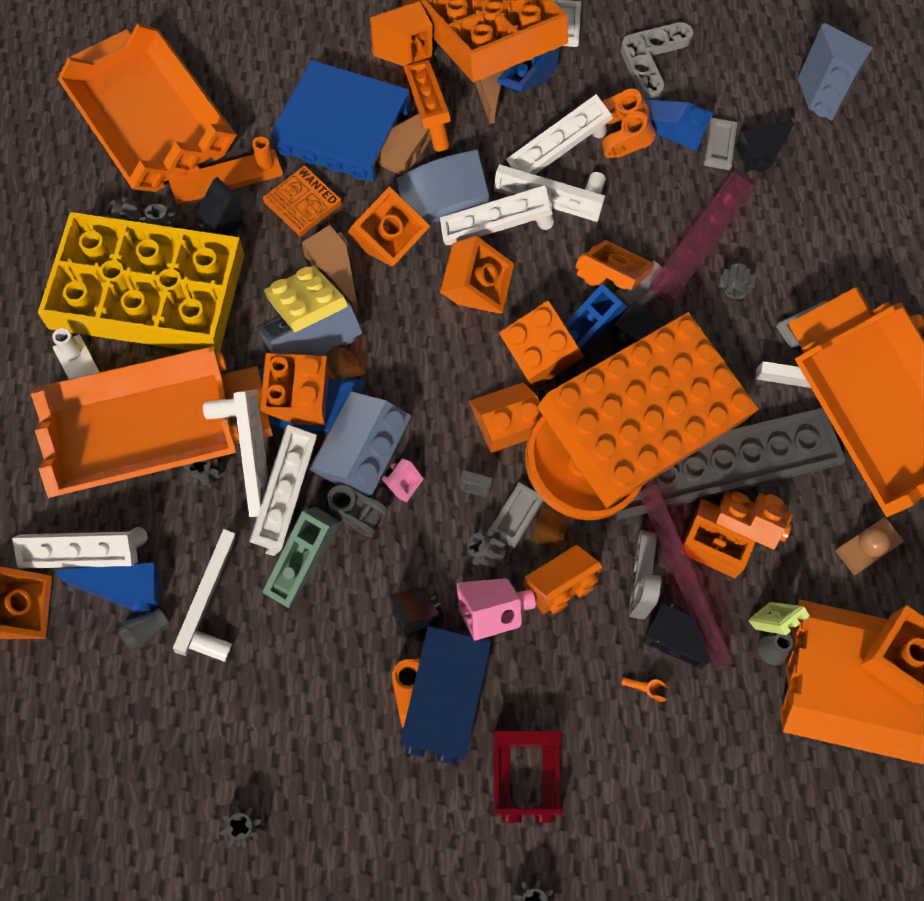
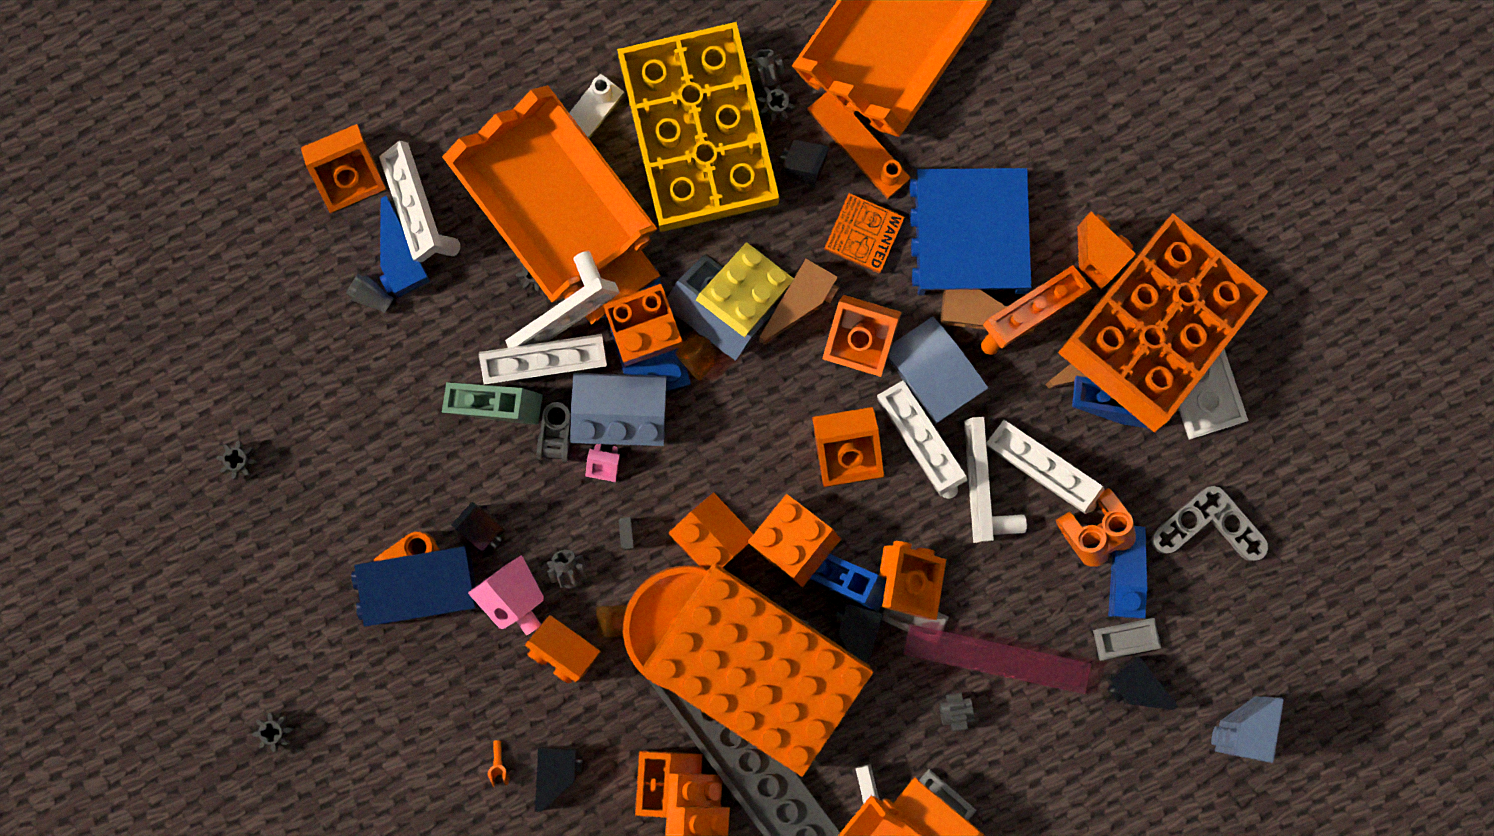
camera: 65 degrees right, 15 degrees up
(189, 636) = (378, 340): white piece -> none
(517, 514) = (612, 582): light grey tile -> none
(551, 801) = (344, 676): dark red panel -> none
(646, 587) = (599, 724): light grey beam -> none
(685, 577) = (611, 764): clear pink tile -> none

